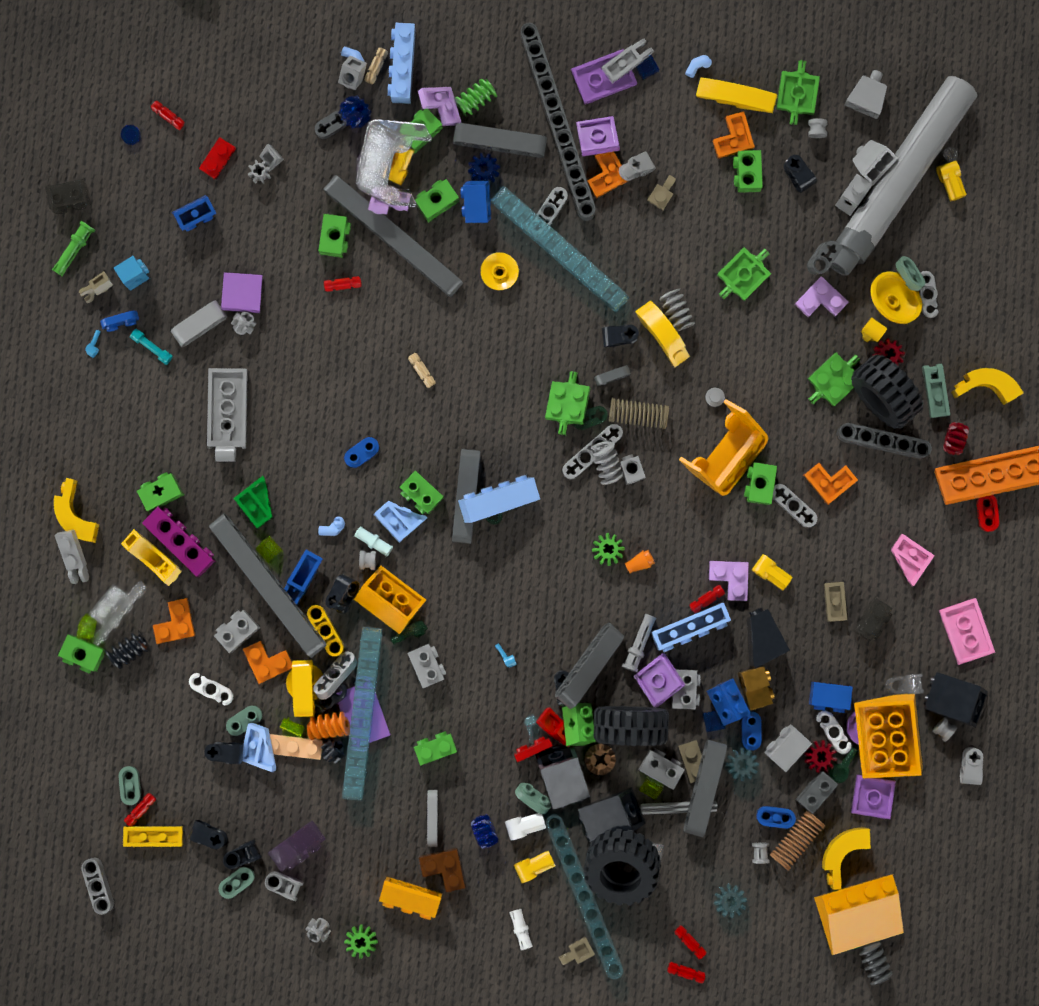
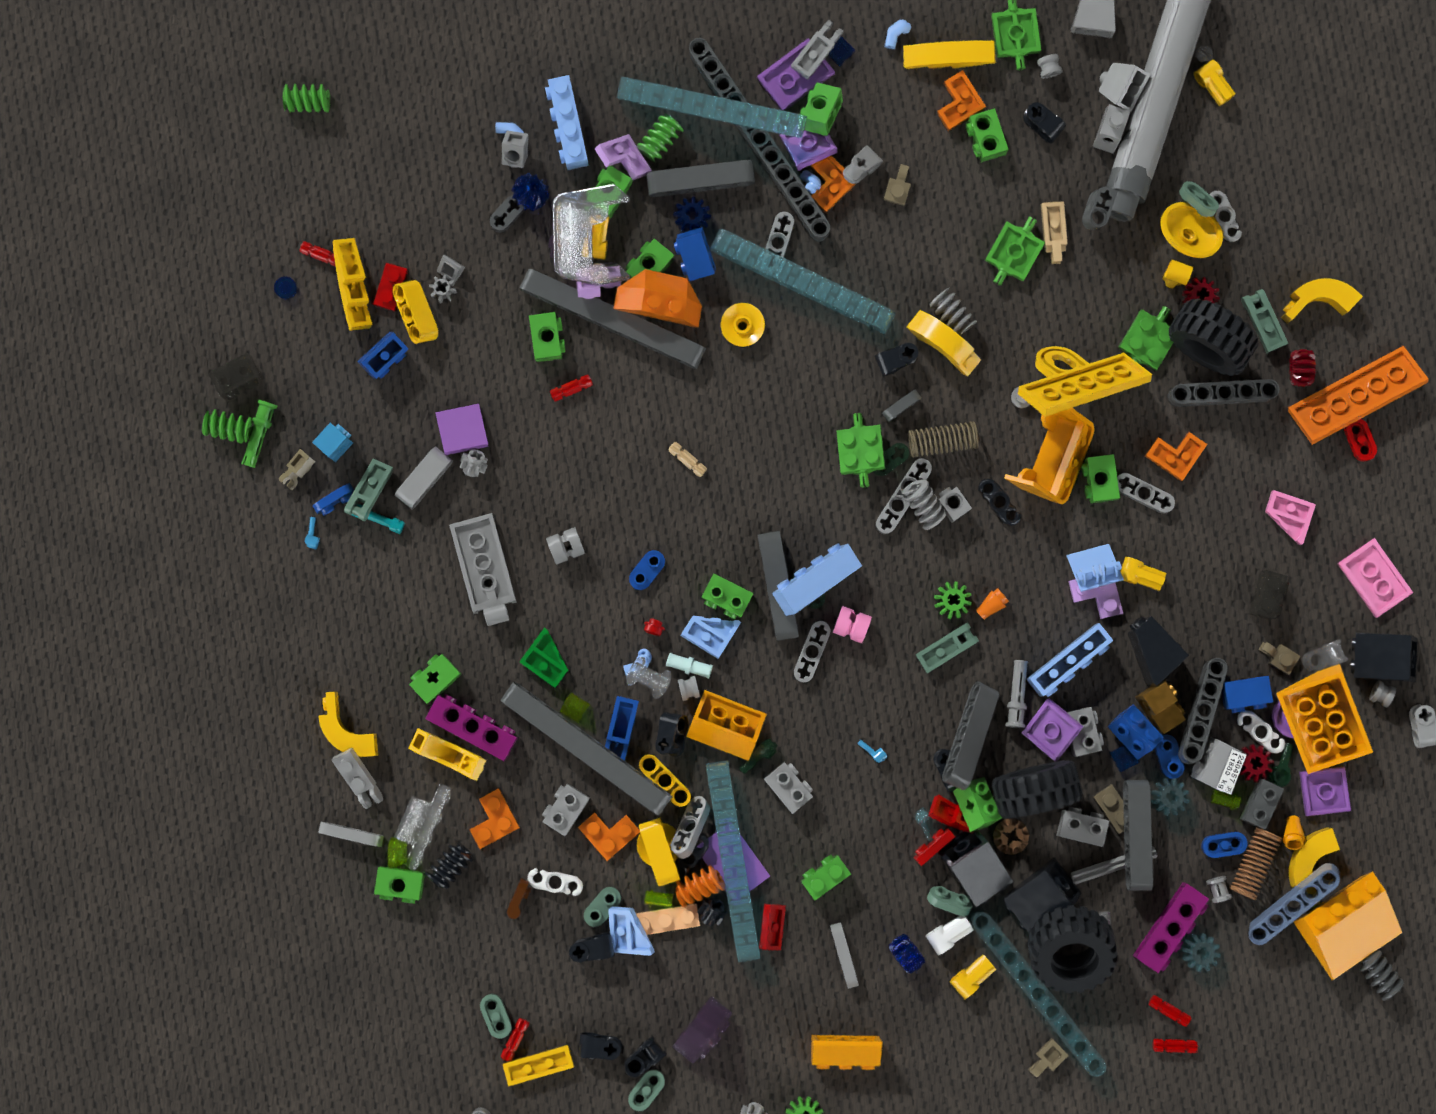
camera: 15 degrees left, 0 degrees up
(47, 236) = (227, 427): none -> bright green piece
(54, 601) = (351, 834): none -> light grey beam
(150, 320) = (368, 489): none -> sand green plate
(180, 689) = (521, 891): none -> reddish brown plate
(185, 146) = (351, 284): none -> yellow slope
(231, 184) = (415, 311): none -> yellow beam
(285, 885) = (701, 1077): light grey piece -> none
(293, 415) = (558, 549): none -> light grey wheel
(336, 541) = (640, 673): none -> clear hose
(353, 501) = (653, 627): none -> red plate
(376, 65) = (538, 133): tan axle -> none
(379, 777) = (772, 927): none -> red plate
(437, 229) = (660, 297): none -> orange wedge
(448, 864) = (873, 1001): reddish brown brick -> none
(466, 567) = (799, 665): none -> light grey beam
(518, 545) = (852, 624): none -> bright pink wheel
(521, 929) = (978, 1050): white pin -> none
(525, 83) = (712, 107): none -> clear light blue beam
(591, 587) = (946, 648): none -> sand green plate
(592, 169) = (812, 181): none -> light blue arm
(616, 110) = (824, 97): none -> bright green brick
(651, 787) = (1077, 851): clear neon green slope -> none
(671, 470) = (998, 491): none -> black piece
(684, 887) = (1171, 914): none -> magenta brick
(707, 599) = (1078, 624): red axle -> none
(734, 555) = (1095, 567): none -> light blue hinge
(765, 399) = (1081, 384): none -> yellow plate
(782, 265) = (1054, 229): none -> tan hinge
(788, 780) = (1225, 799): none -> clear neon green pin
(796, 694) = (1210, 703): none -> dark grey beam
(798, 757) = (1231, 771): none -> white sticker
(821, 293) = (1107, 248): lavender plate -> none
(823, 875) = (1297, 894): none -> sand blue beam
(835, 601) = (1221, 586): dark tan plate -> none
(836, 824) = (1293, 835): none -> light orange cone
(868, 675) = (1281, 658): none -> dark tan plate

